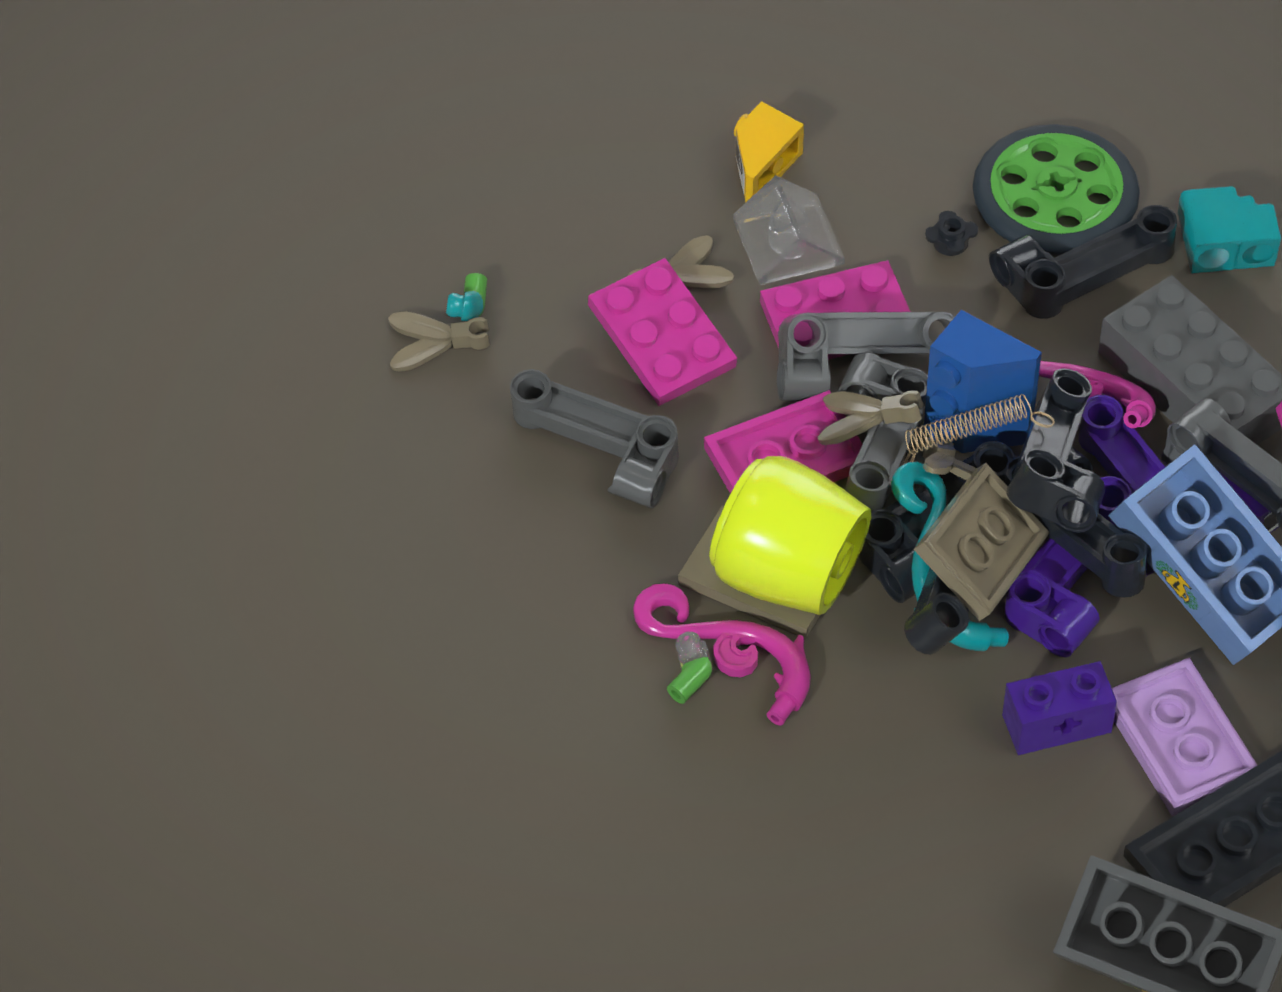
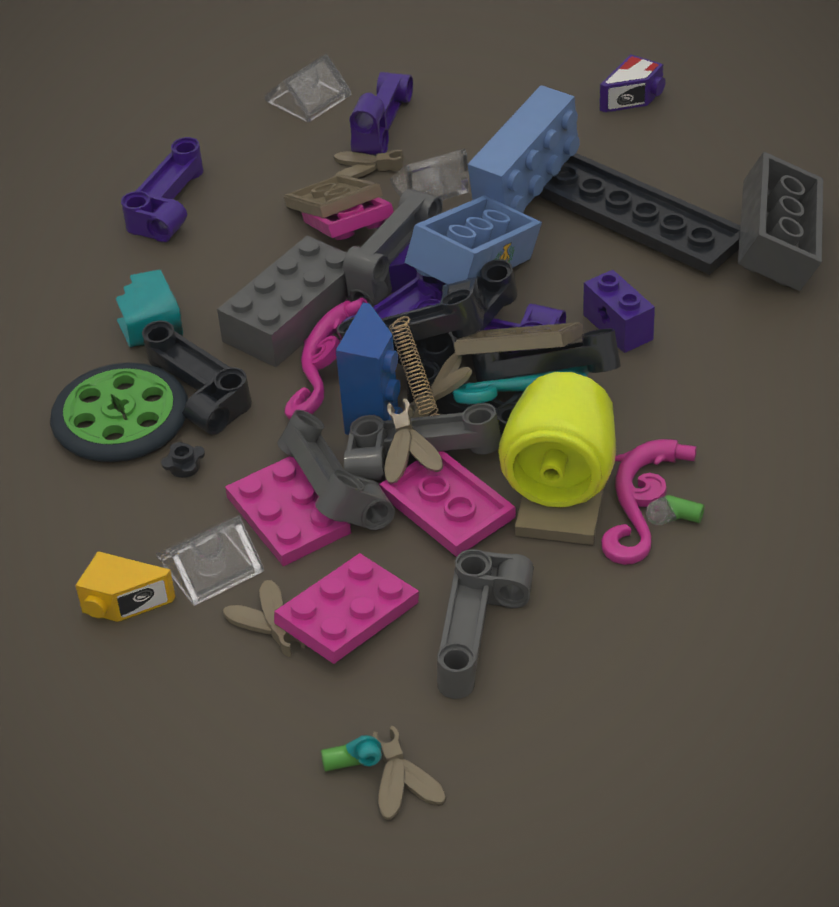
camera: 105 degrees left, 10 degrees down
(1180, 734) = (606, 252): lavender tile -> none

